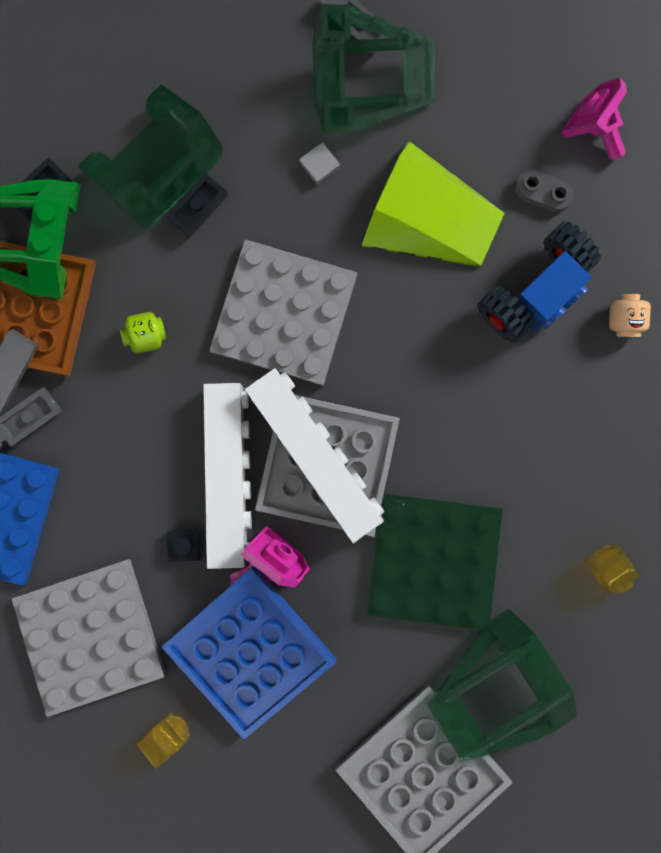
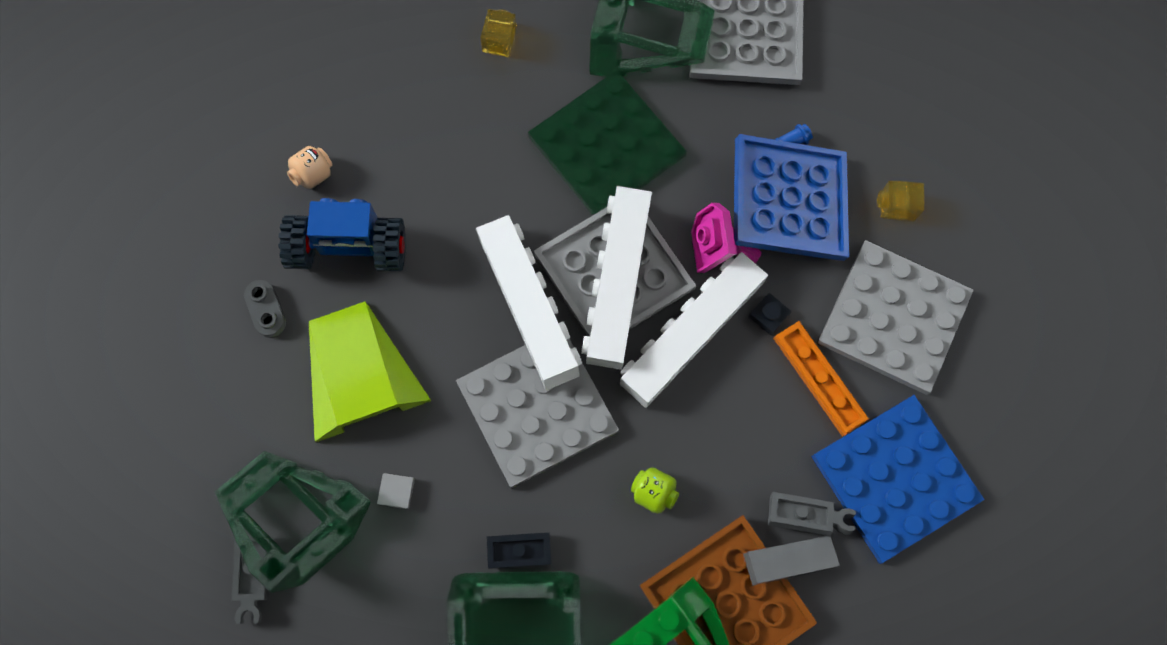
camera: 145 degrees left, 10 degrees down
(102, 532) = (821, 378): none -> orange tile
(295, 712) = (799, 135): none -> blue pin
(363, 372) = (528, 303): none -> white brick
(600, 116) = (168, 318): dark pink piece -> none

